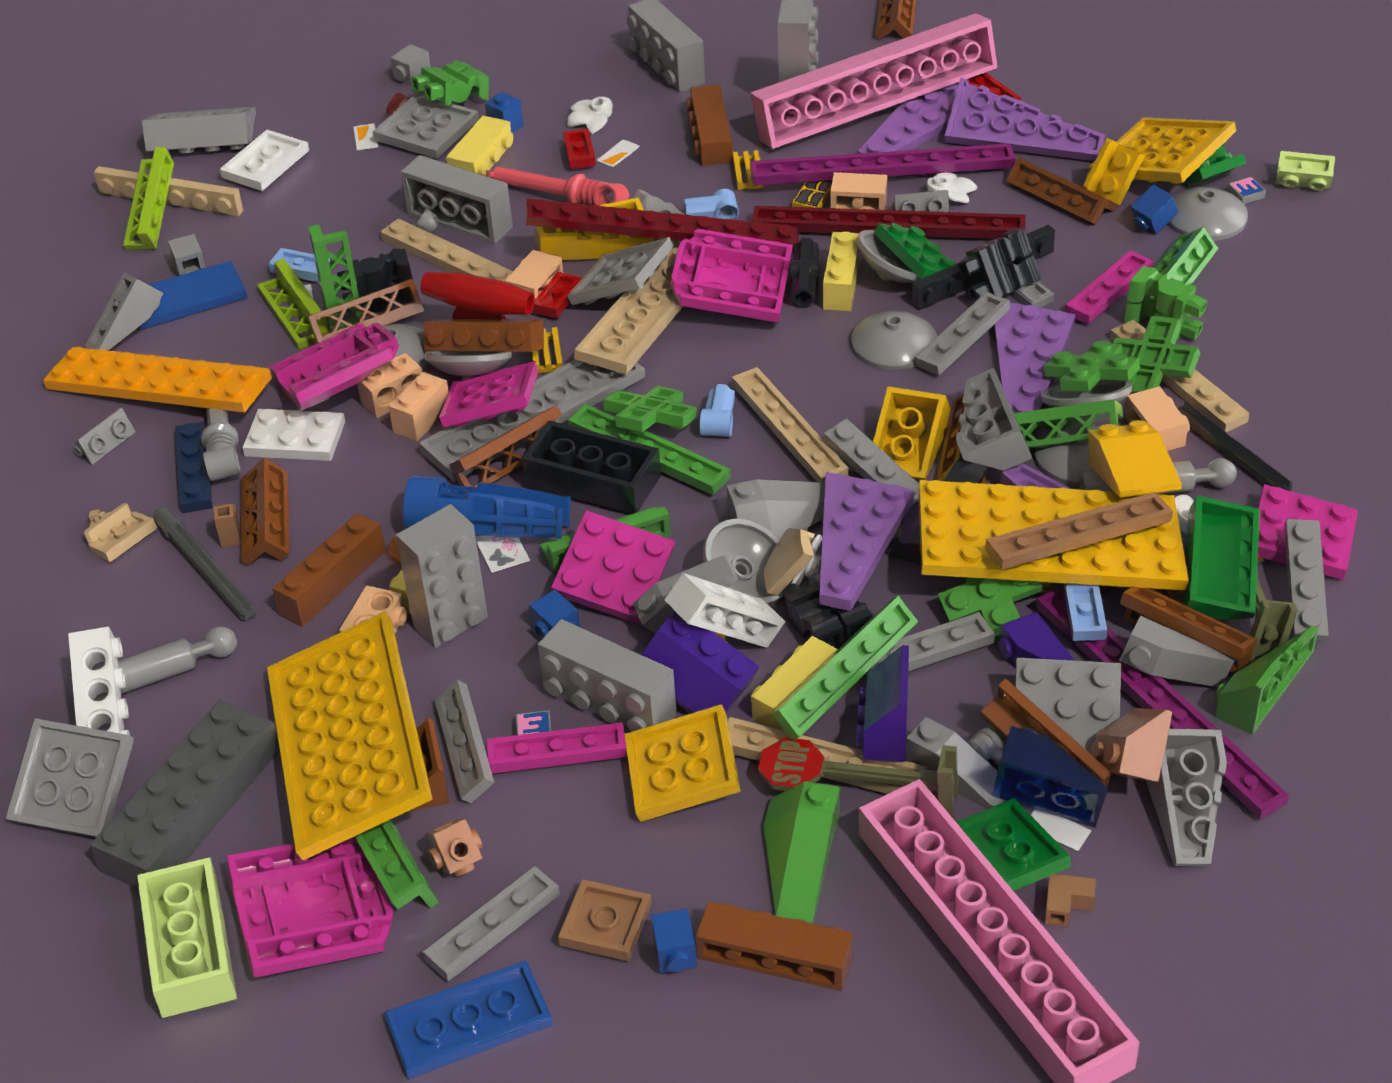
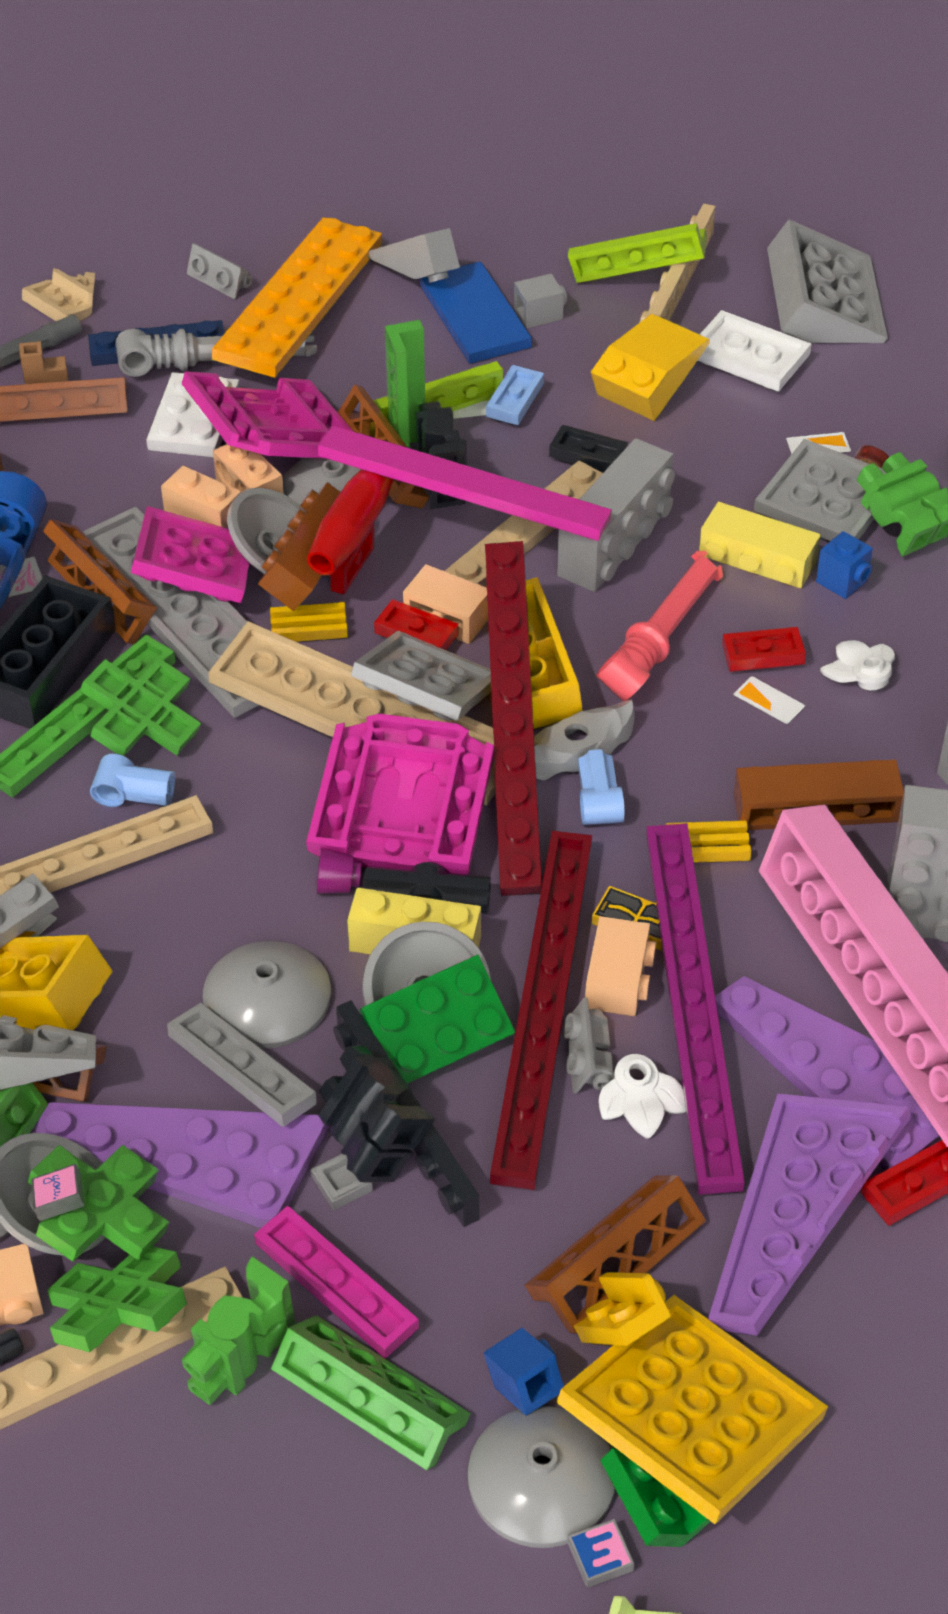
camera: 90 degrees right, 5 degrees up
(287, 194) = (647, 365): none -> yellow slope
(368, 227) = (584, 446): none -> black plate
(455, 235) = (465, 482): none -> dark pink tile
(795, 312) = (336, 872): none -> magenta hat
(1105, 361) = (57, 1192): none -> tile

